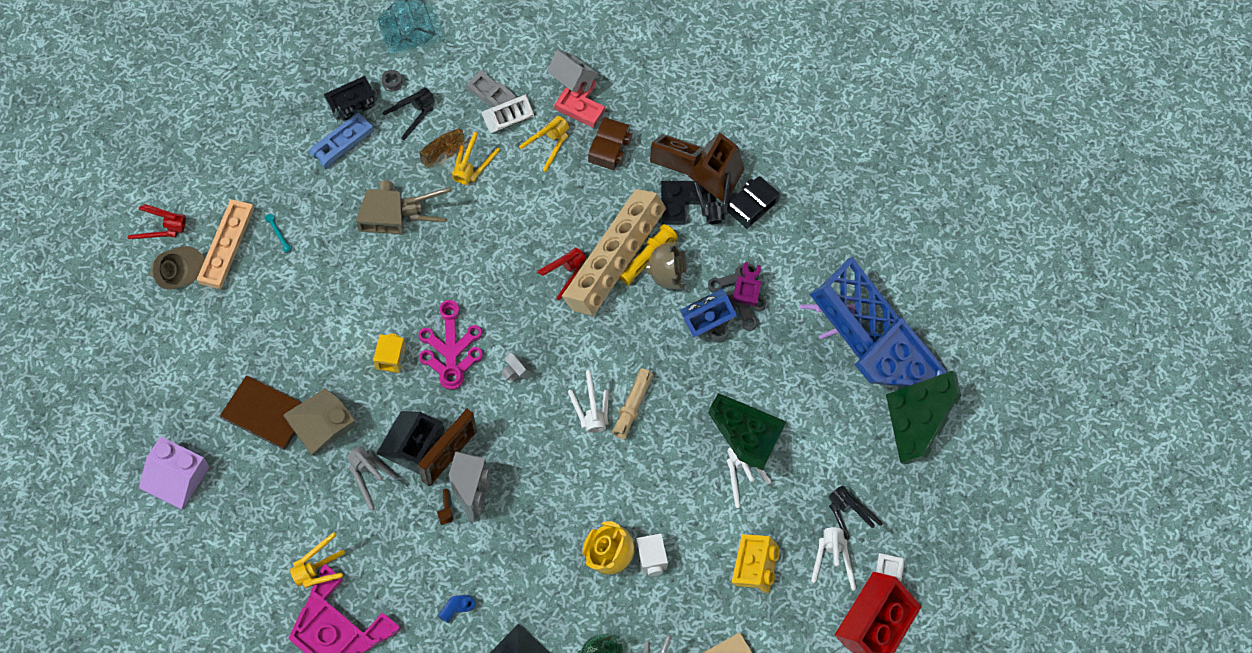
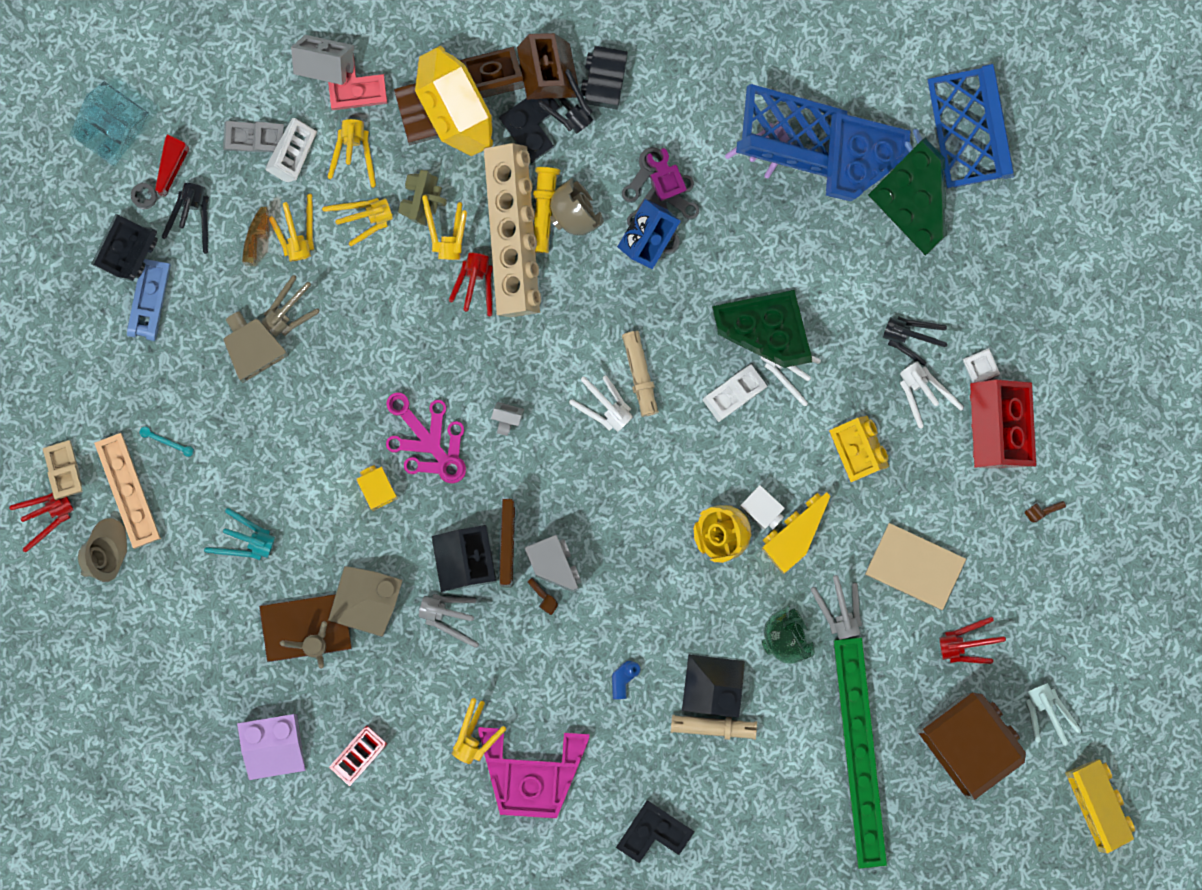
camera: 30 degrees left, 20 degrees up
(196, 202) = (62, 470): none -> tan slope
(234, 513) = (372, 736): none -> slope
(258, 424) = (313, 645): none -> dark tan plant
(282, 335) = (259, 543): none -> teal plant
(423, 72) = (172, 158): none -> red slope
(533, 184) = (376, 211): none -> yellow plant
(565, 234) = (450, 246): none -> yellow plant
(571, 195) = (421, 184): none -> olive hips
(636, 147) = (453, 102): none -> yellow wedge
(657, 594) = (795, 539): none -> yellow slope
(691, 463) = (734, 393): none -> white slope
(1014, 408) = (995, 123): none -> blue fence

